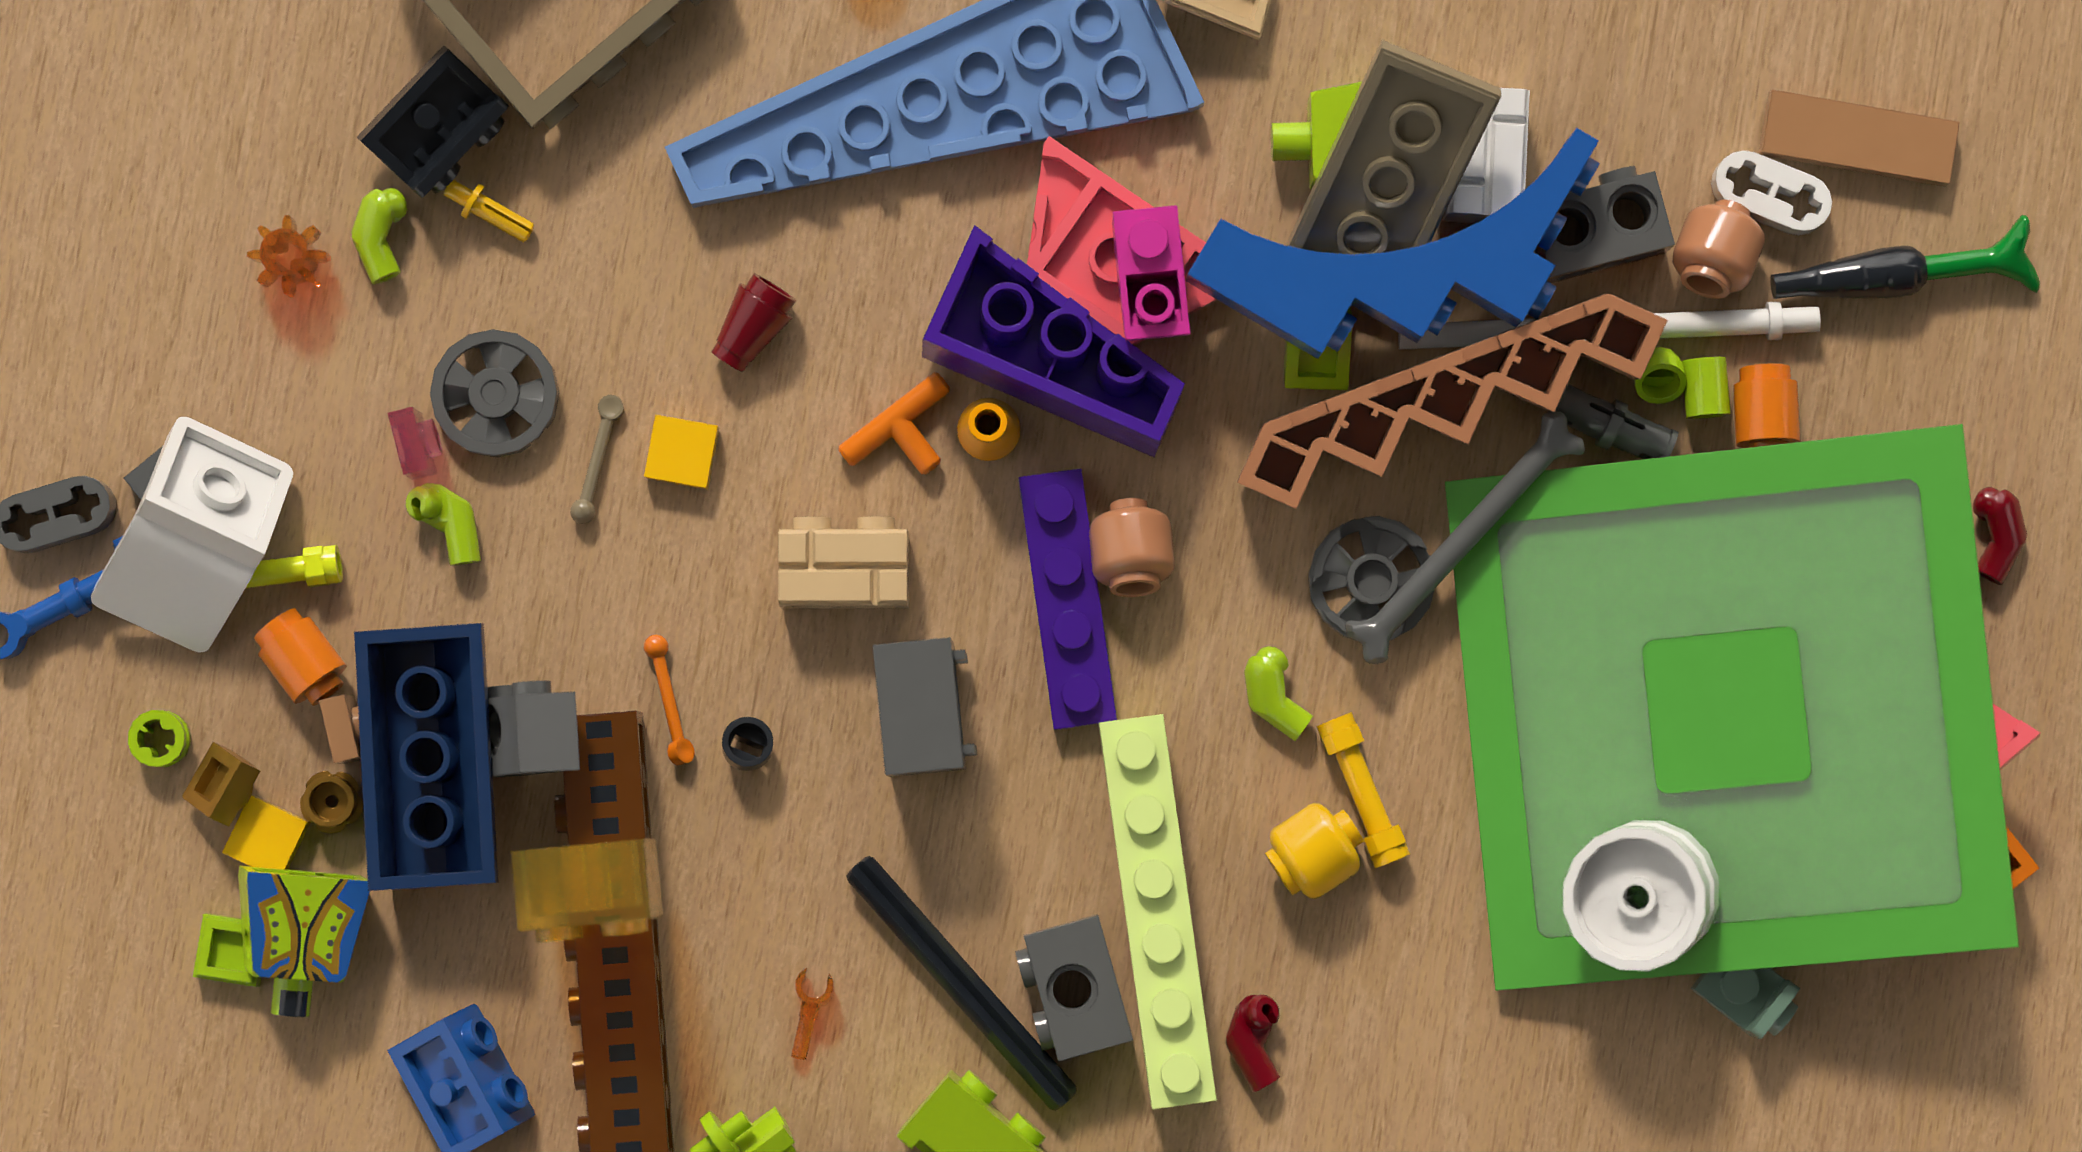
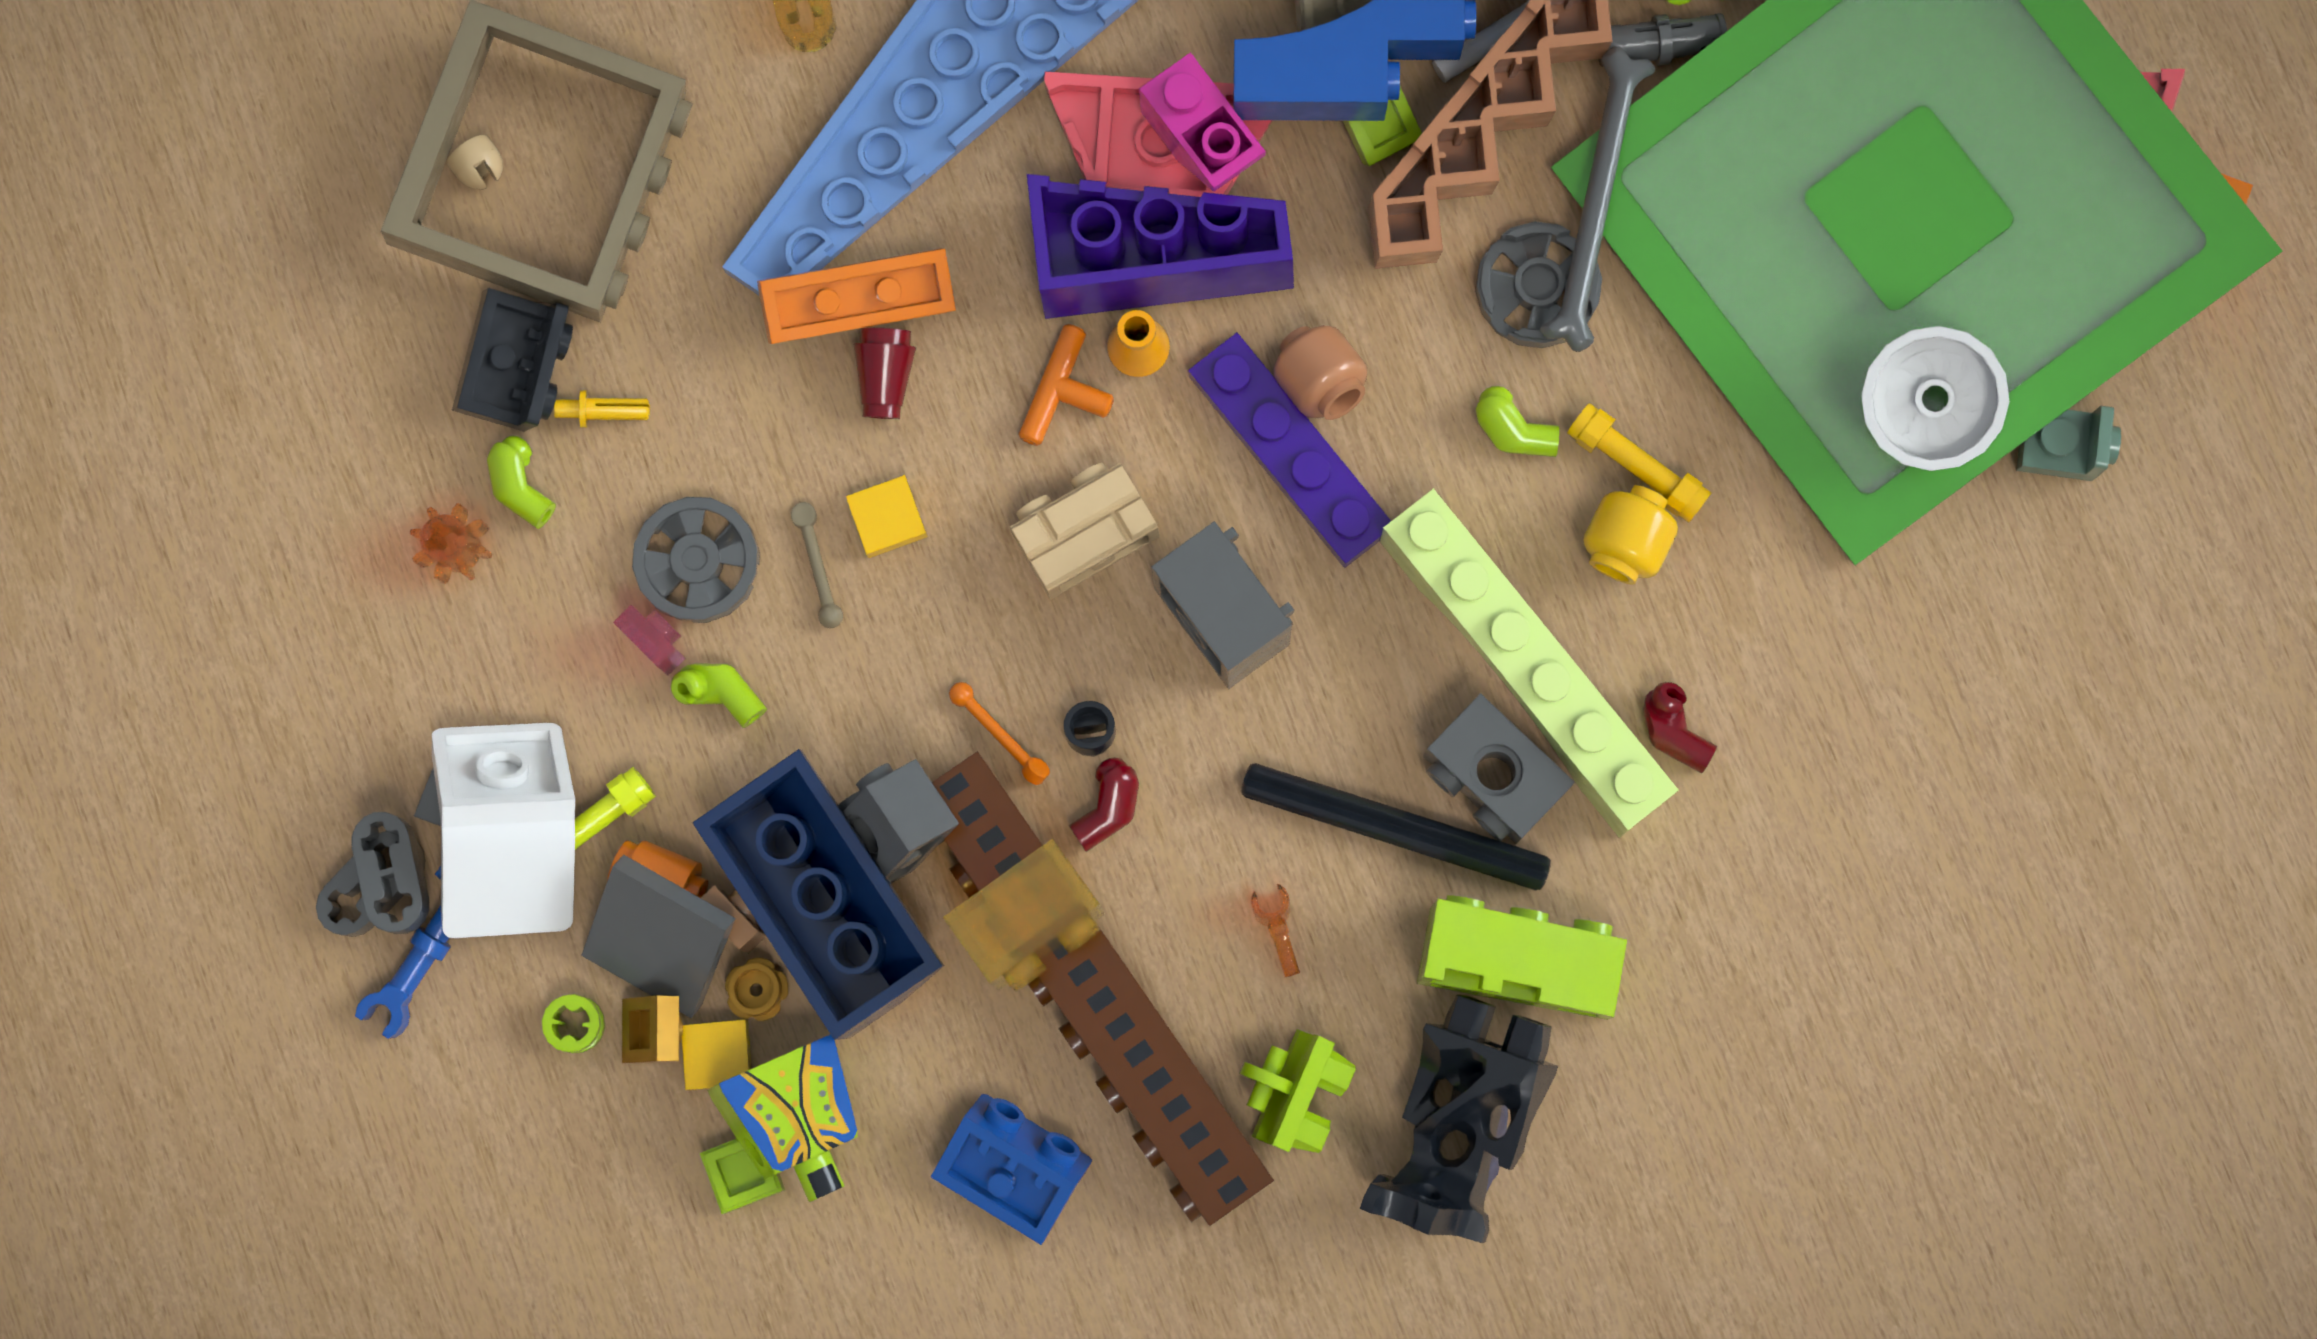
camera: 25 degrees left, 5 degrees down
(59, 514) = (375, 876): none -> dark grey beam
(271, 708) = (657, 935): none -> dark grey tile
(732, 820) = (1114, 806): none -> dark red arm
(766, 242) = (856, 295): none -> orange plate

